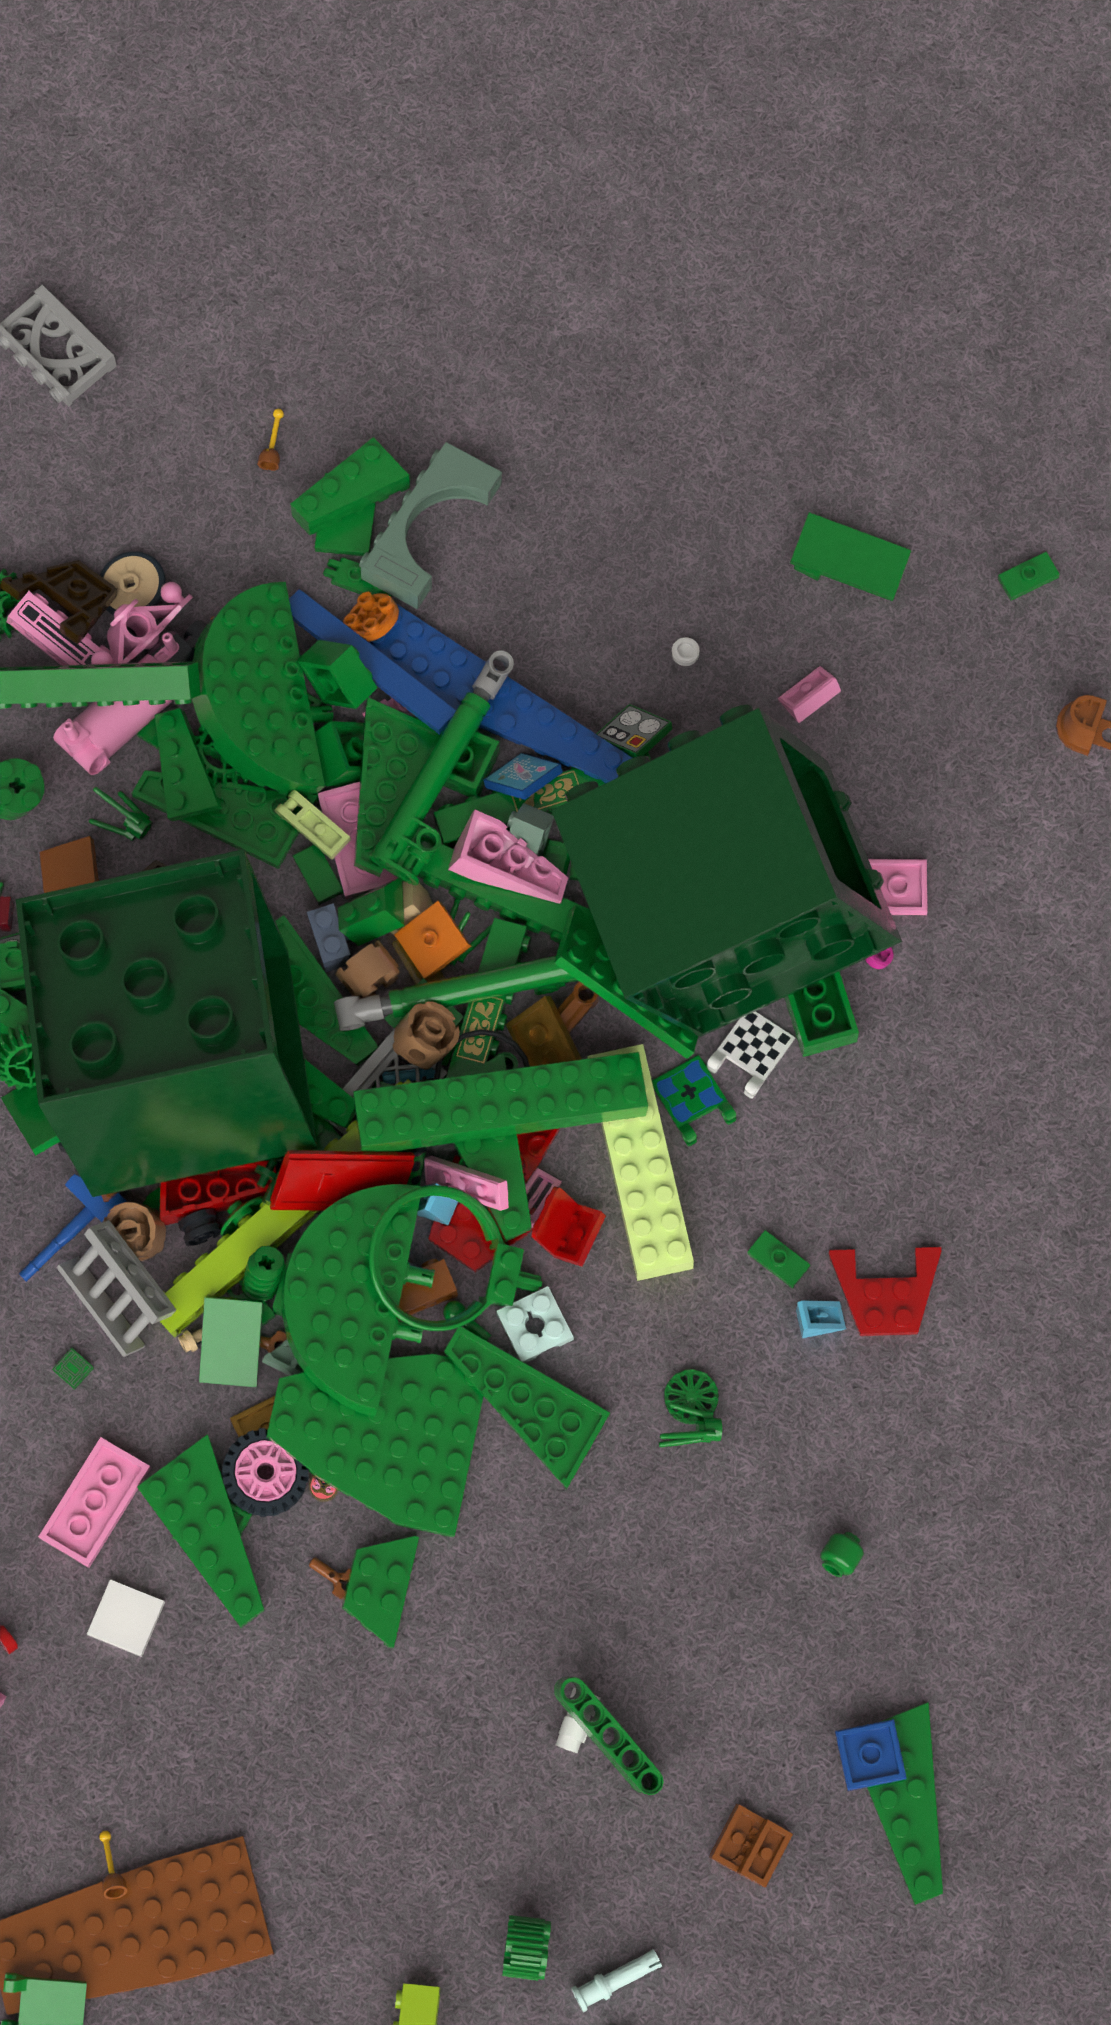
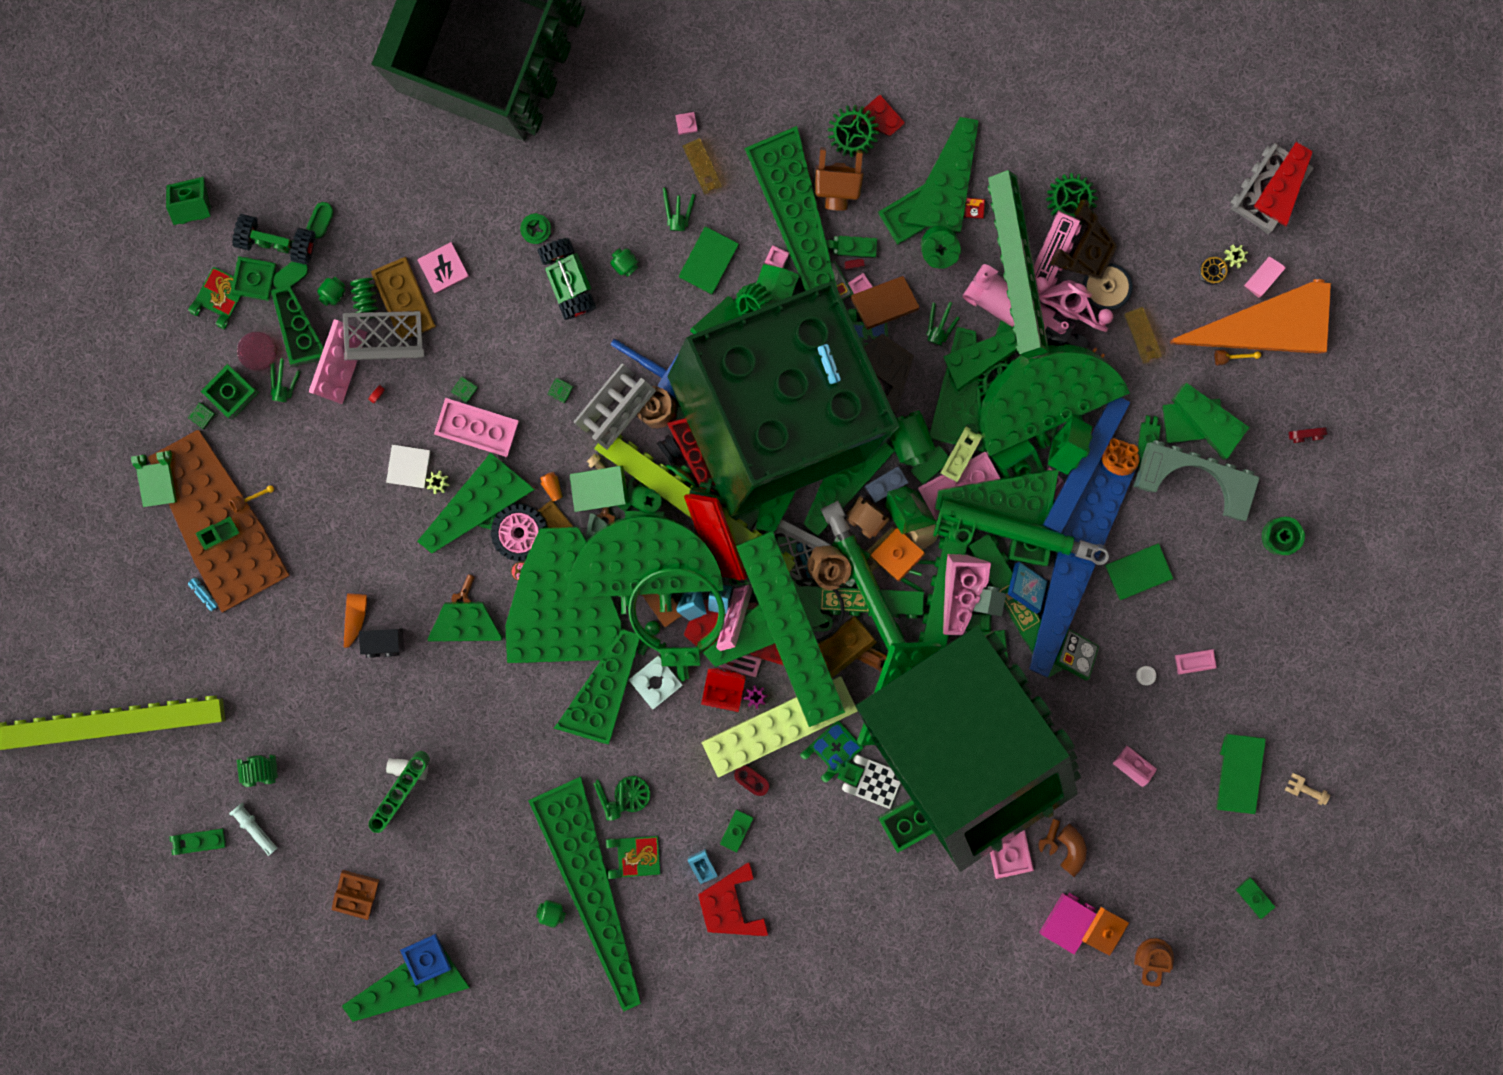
camera: 75 degrees right, 15 degrees up
(34, 1509) = (464, 389): none -> green tile
(60, 327) = (1282, 190): none -> red wing
(131, 925) = (829, 364): none -> medium azure axle
(133, 417) = (1230, 258): none -> yellowish green gear
(140, 436) = (1219, 266): none -> black wheel
(151, 1924) = (217, 534): none -> green brick
(168, 1580) = (432, 481): none -> yellowish green gear
(174, 381) = (1264, 276): none -> bright pink slope
(209, 1411) = (551, 485): none -> orange cone
(210, 553) = (1142, 334): none -> clear yellow plate
(238, 1977) = (203, 594): none -> medium azure axle
(243, 371) = (1284, 323): none -> orange slope
(284, 884) = (912, 440): none -> green cylinder
(322, 1746) = (354, 617): none -> orange piece
(377, 1711) = (381, 641): none -> black brick
(403, 381) = (1300, 435): none -> dark red plate
(433, 1244) = (691, 605): none -> medium azure slope
(534, 431) = (1290, 528): none -> green brick
(538, 630) = (1138, 571): none -> green tile
(581, 1185) = (760, 700): none -> magenta gear
(681, 583) = (1195, 661): none -> bright pink tile
(709, 1220) = (751, 780): none -> dark red plate
(728, 1081) = (847, 772): none -> green plate
(744, 1498) = (576, 850): none -> green wing
(784, 1412) = (635, 856): none -> flag
(886, 828) = (1050, 838): none -> dark orange bar
(907, 458) = (1299, 786): none -> tan hinge
(908, 794) = (1076, 849): none -> dark orange cylinder
(1010, 826) = (1068, 922): none -> dark pink brick
(1032, 779) = (1105, 931): none -> orange plate

